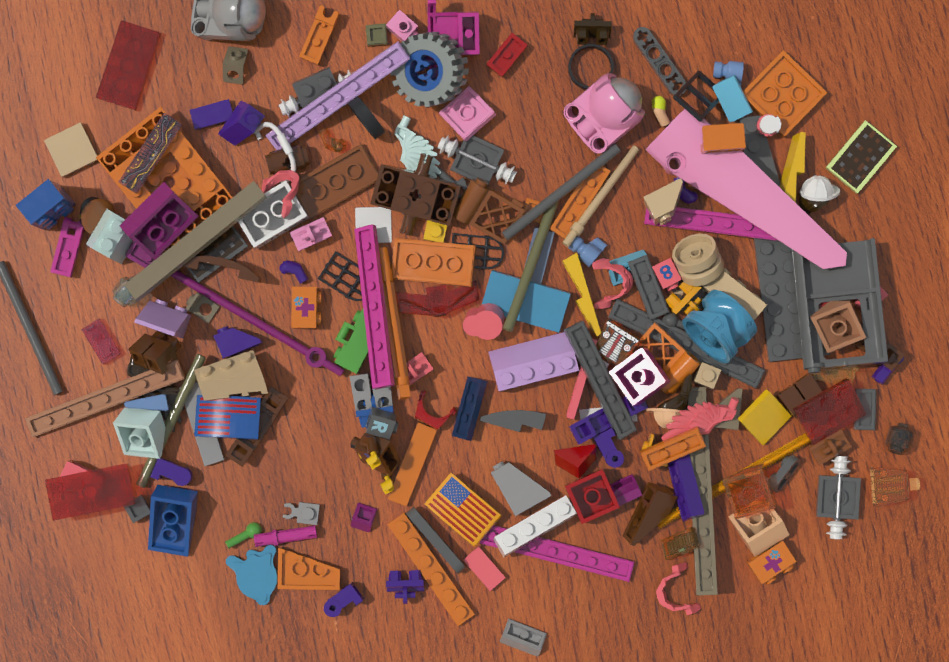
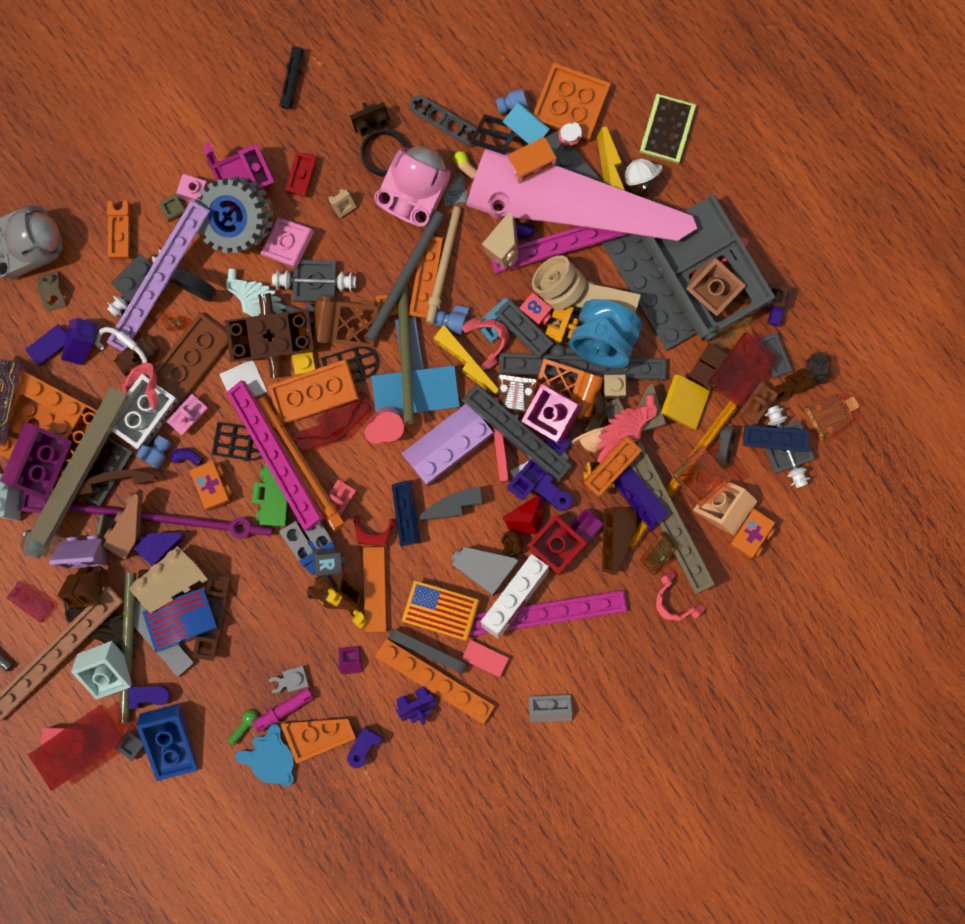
camera: 20 degrees left, 5 degrees down
(156, 402) = (102, 636): medium blue slope -> none
(213, 317) = (128, 527): none -> nougat slope
(267, 257) = (154, 454): none -> medium blue piece
(533, 98) = (342, 203): none -> tan tile
(553, 476) = (512, 543): none -> reddish brown plate
(641, 132) = (456, 192): none -> light grey sticker
(831, 486) = (775, 438): none -> dark blue plate
(871, 442) = (794, 383): none -> reddish brown plate

